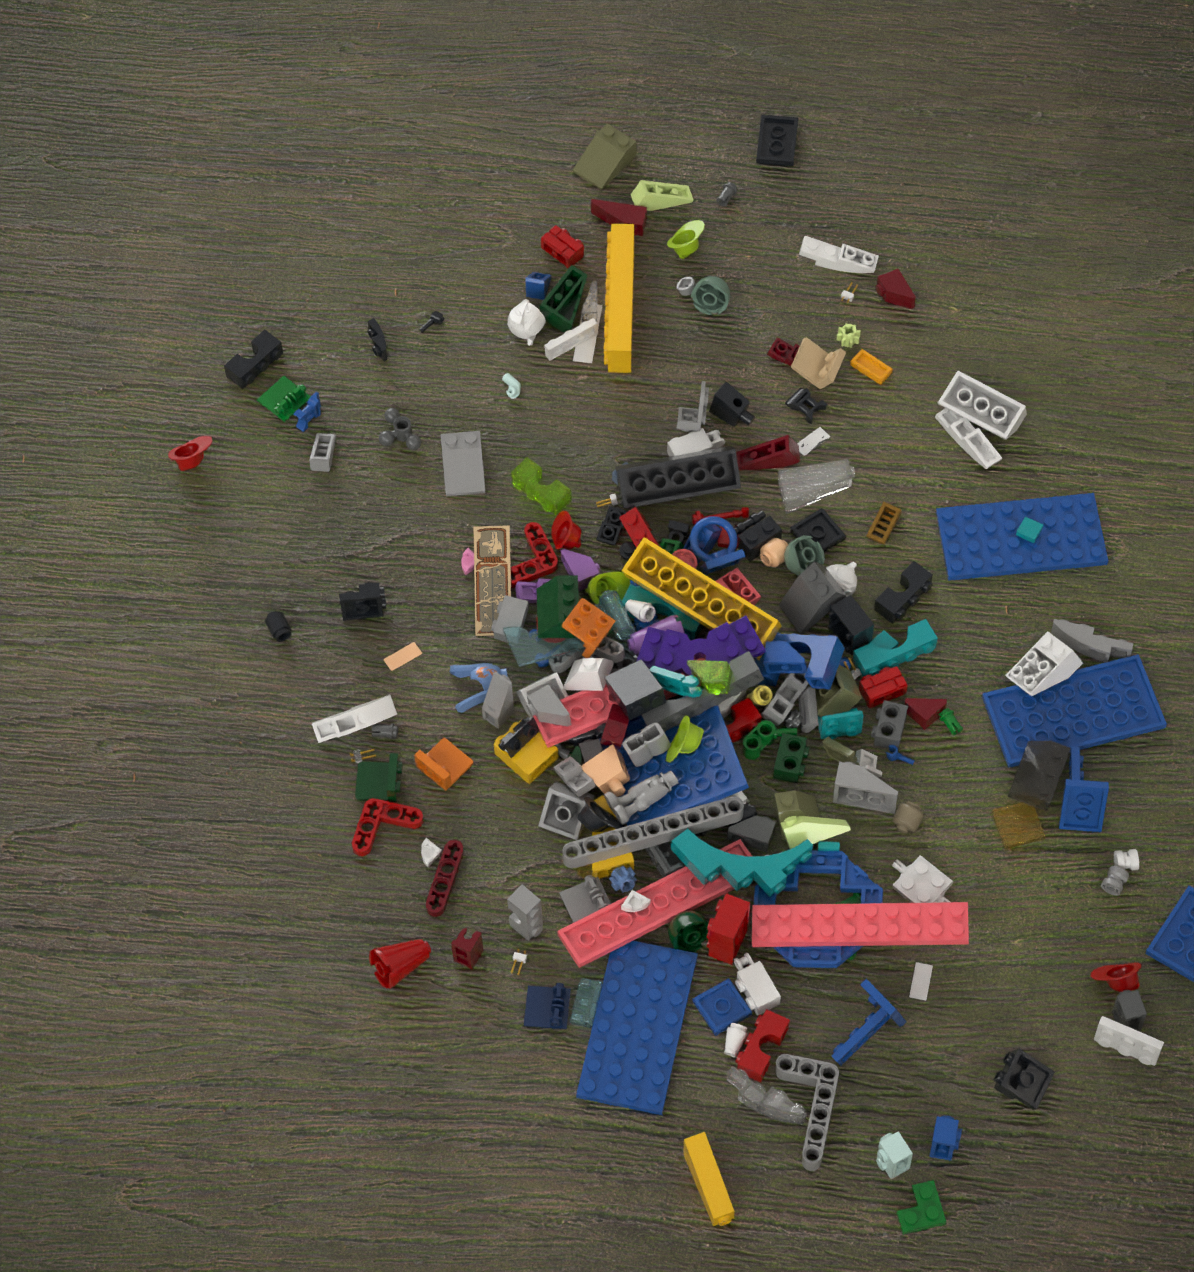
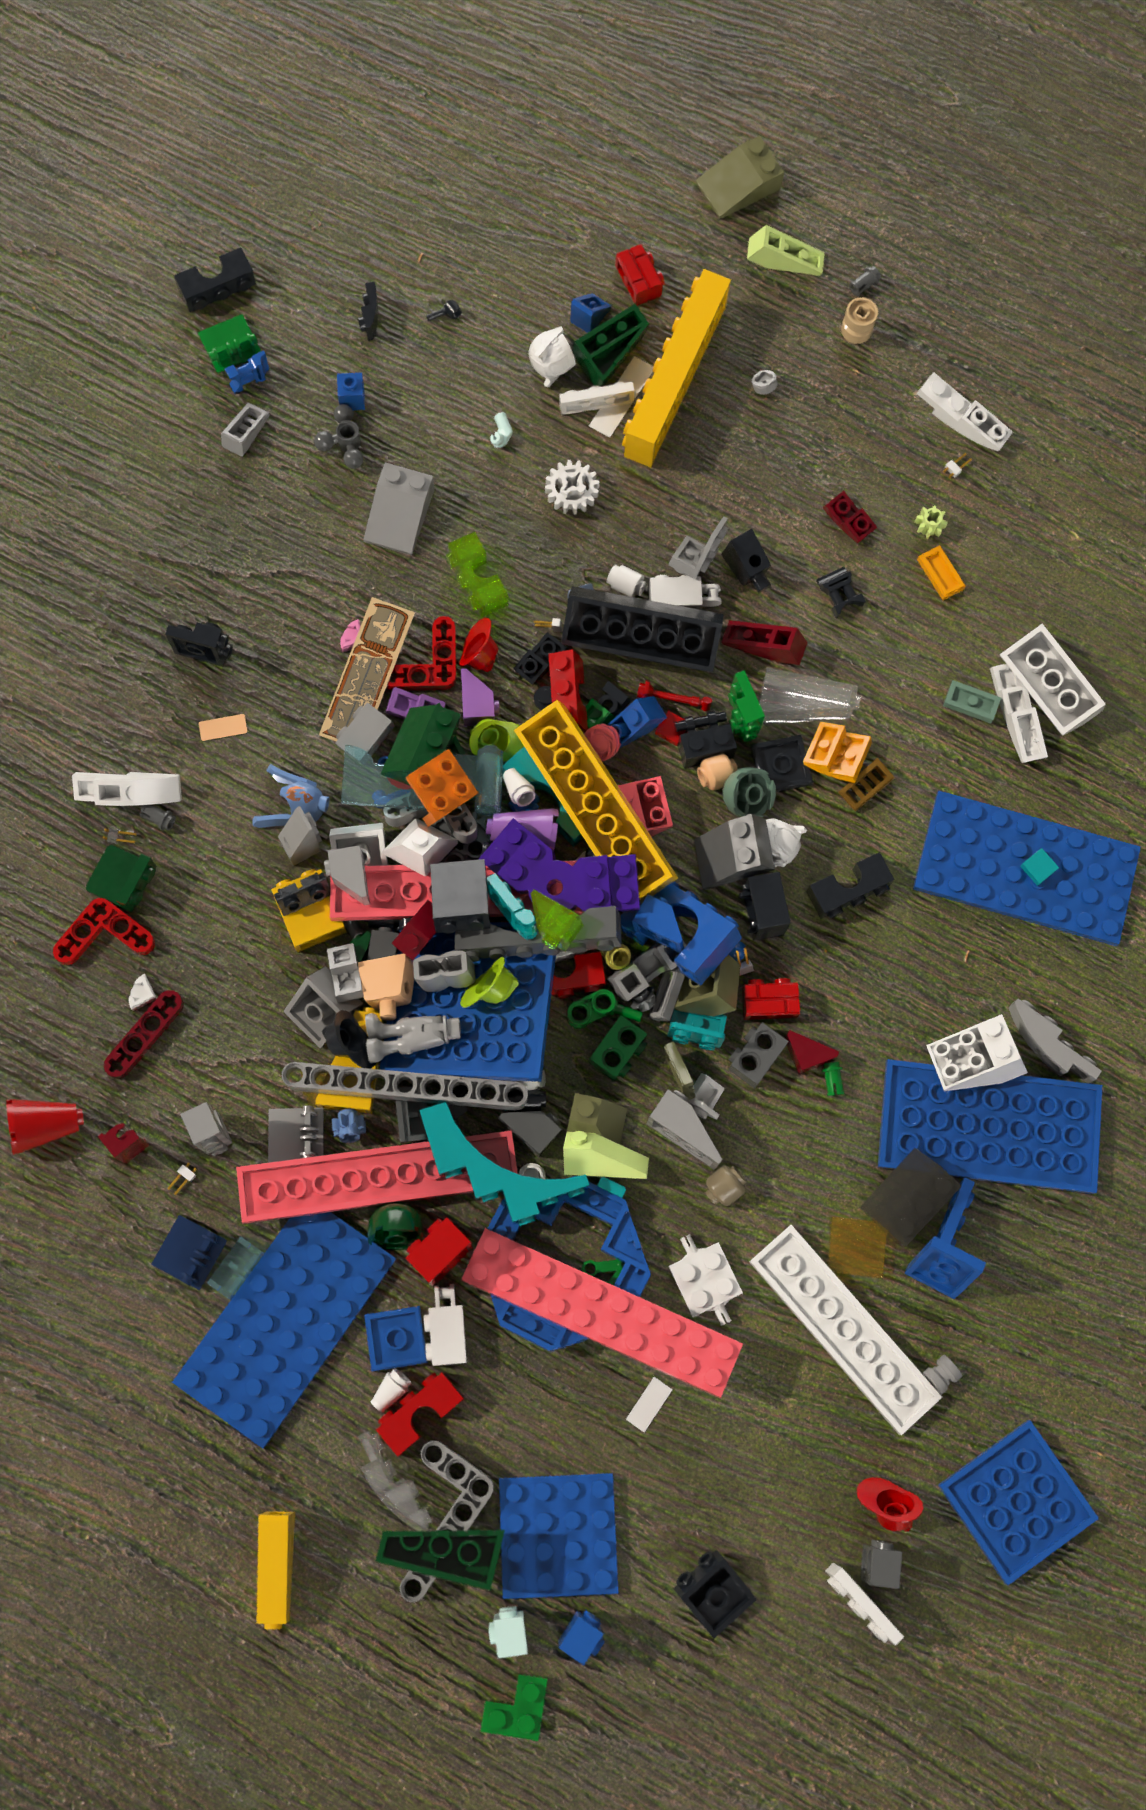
camera: 15 degrees right, 15 degrees up
(191, 453) = (87, 372): red piece -> none
(278, 626) = (92, 632): black brick -> none
(390, 396) = (351, 390): none -> blue brick
(443, 763) = (207, 886): orange bracket -> none
(581, 404) = (572, 488): none -> white gear
(590, 307) = (637, 366): clear slope -> none
(620, 214) = (727, 261): dark red slope -> none
(635, 902) = (345, 1167): white tile -> none
(649, 451) = (626, 581): none -> white brick
(686, 238) = (789, 322): lime piece -> none
(711, 295) = (787, 406): sand green cylinder -> none
(719, 559) = (644, 756): blue tile -> none
(735, 221) = (859, 320): none -> tan wheel
(776, 500) = (747, 713): none -> green plate
(777, 140) = (956, 234): black plate -> none
(812, 441) = (828, 641): white sticker -> none
(817, 364) = (876, 545): tan bracket -> none
(824, 1117) = (444, 1554): none -> dark green wedge
(853, 510) = (837, 752): none -> light orange slope
(872, 659) = (774, 960): teal arch -> none
(873, 1023) = (582, 1440): blue piece -> none
(885, 641) = (797, 942): teal tile -> none
(894, 756) = (751, 1097): blue hand -> none
(895, 289) = (1014, 483): dark red slope -> none
(897, 1087) = (558, 1536): none -> blue plate
(932, 442) = (971, 701): none -> sand green plate
(1034, 878) = (845, 1330): none -> white plate
(1127, 859) = (968, 1353): white wheel -> none

